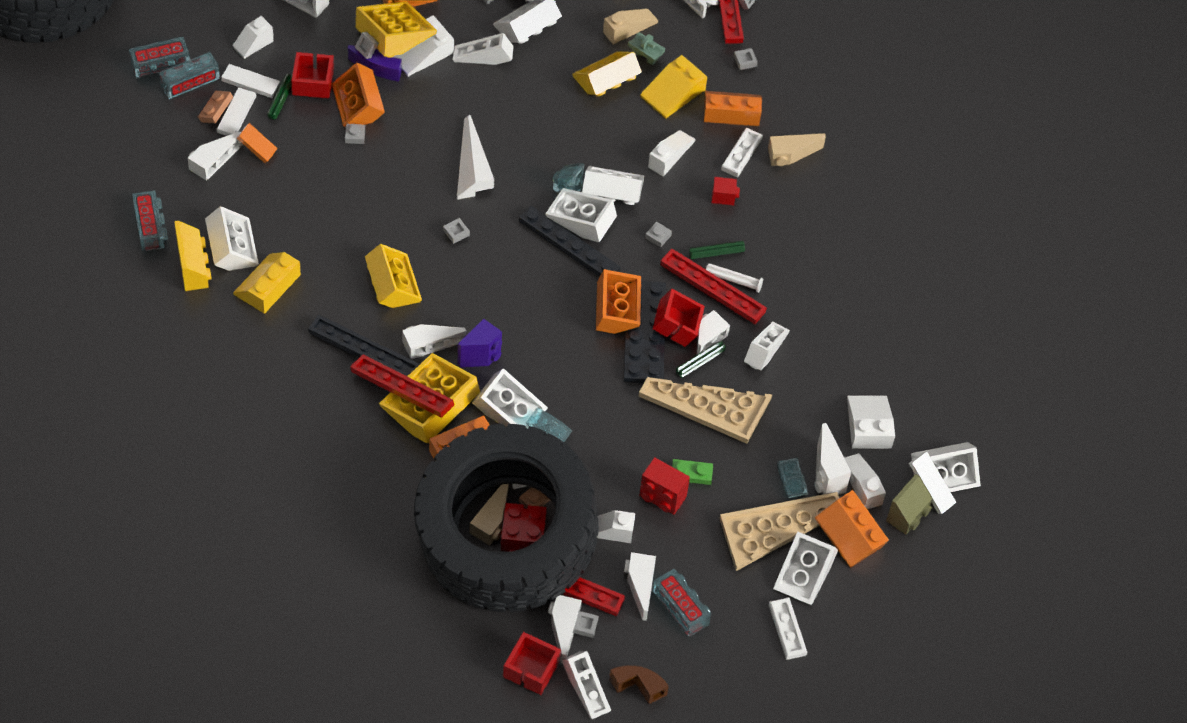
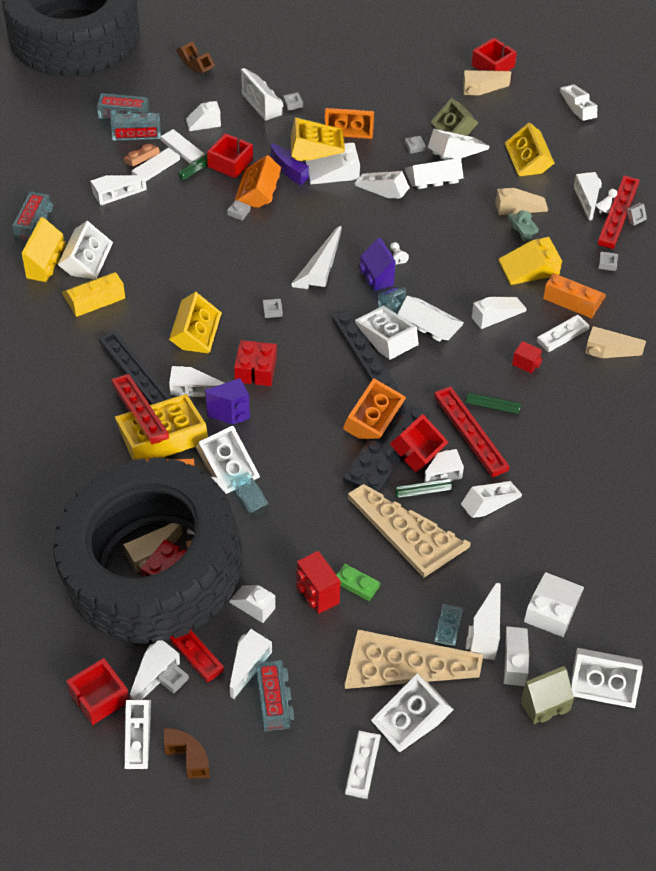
camera: 30 degrees right, 5 degrees down
(257, 143) = (153, 189): orange tile -> none
(366, 45) = (283, 145): light grey plate -> none
(474, 289) = (256, 356): none -> red piece
(535, 146) = (378, 265): none -> dark purple slope
(545, 127) = (399, 255): none -> white piece
(608, 73) = (478, 233): slope -> none
(658, 234) = (447, 372): light grey plate -> none
(735, 277) = (497, 432): white axle -> none
(851, 529) = (476, 695): orange slope -> none
(926, 470) = (581, 683): white tile -> none

